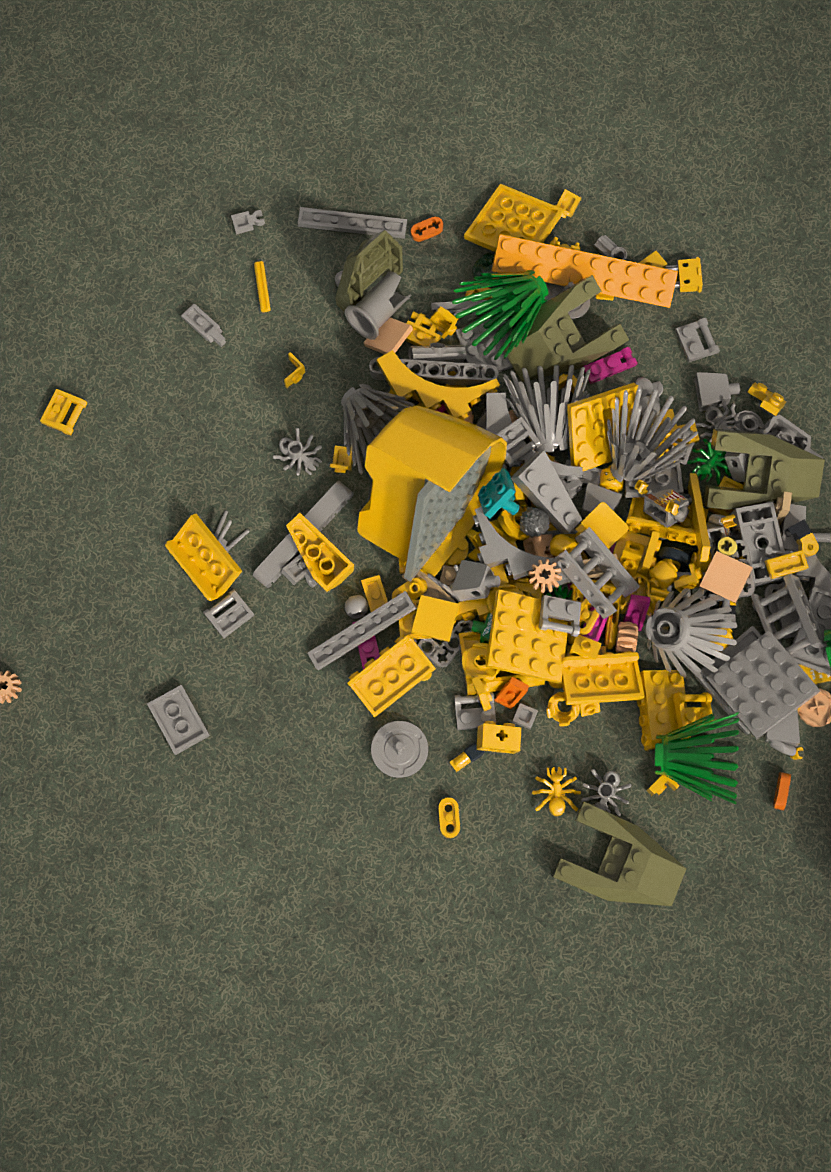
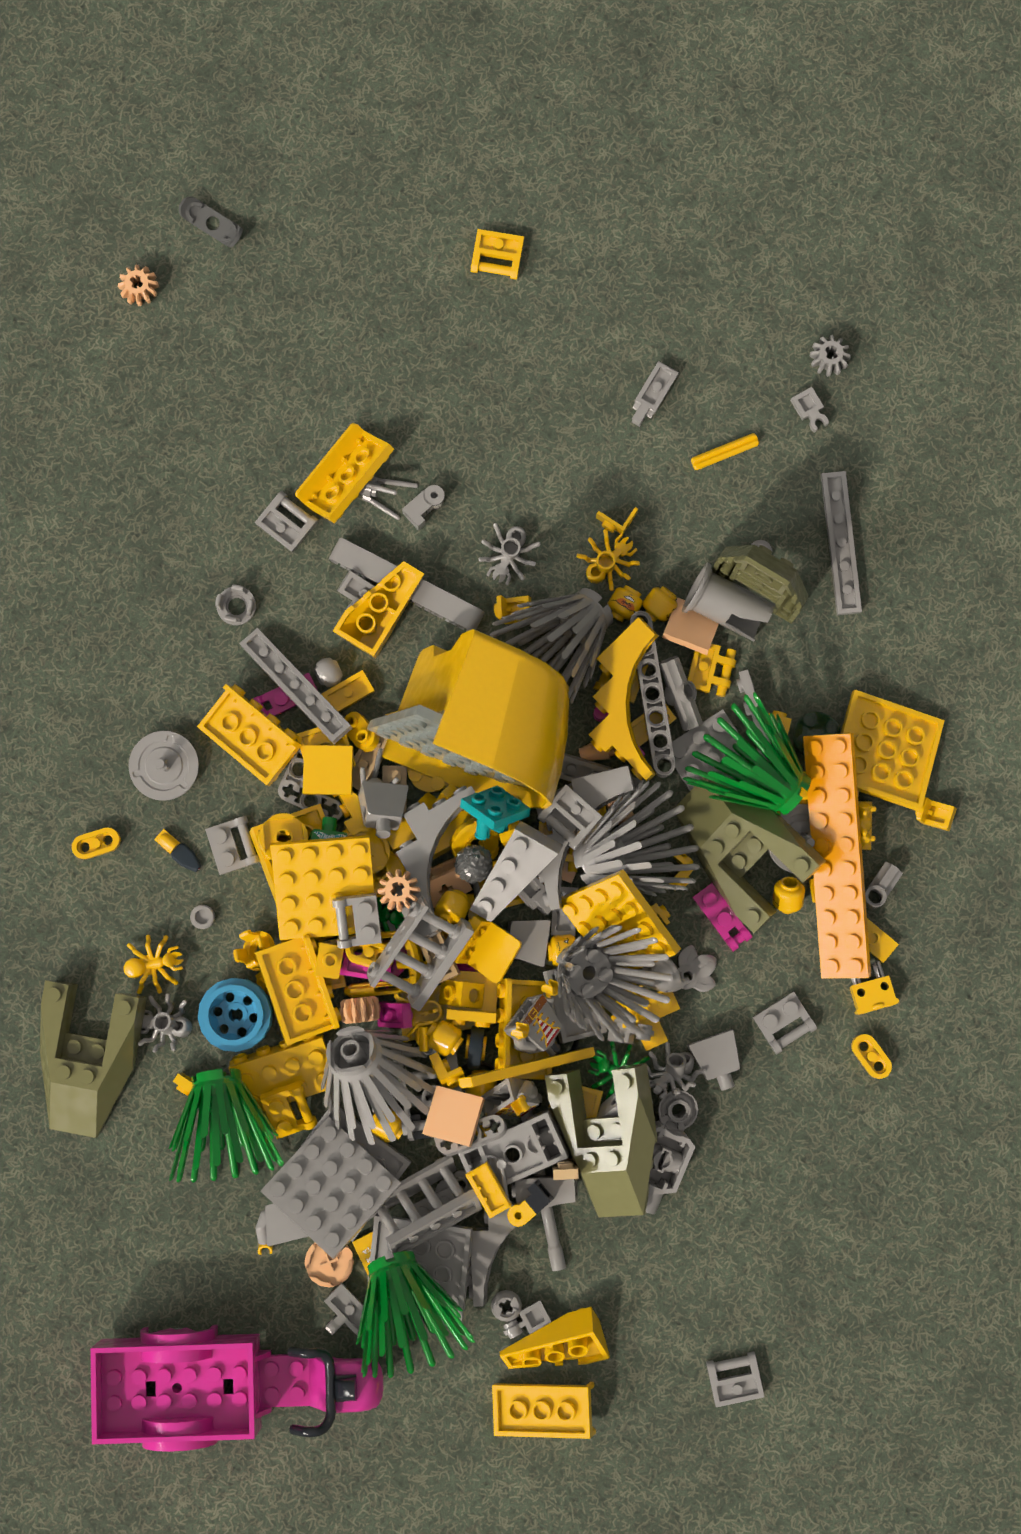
camera: 80 degrees right, 10 degrees up
(178, 719) = (144, 497): light grey plate -> none
(211, 198) = (837, 361): none -> light grey gear
(243, 508) = (423, 504): none -> light grey leg
(280, 657) = (226, 596): none -> light grey piece
(323, 384) = (606, 560): none -> yellow animal
(358, 375) = (625, 603): none -> yellow head
(364, 353) = (660, 603): none -> yellow head
(427, 229) = (852, 644): orange beam -> none
(445, 320) = (730, 691): yellow bracket -> none
(482, 692) = (245, 847): yellow plate -> none
(488, 741) = (198, 893): yellow brick -> none
(511, 693) = (258, 883): orange plate -> none
(525, 716) = (238, 906): light grey plate -> none
(527, 747) = (202, 917): none -> light grey tile
(604, 314) = (788, 895): none -> yellow head
(627, 720) = (211, 1023): none -> dark azure wheel
(732, 286) = (871, 1056): none -> yellow plate
(732, 549) = (486, 1115): light yellow bush -> none
(771, 401) = (720, 1134): yellow plate -> none
(782, 790) = (213, 1236): orange beam -> none

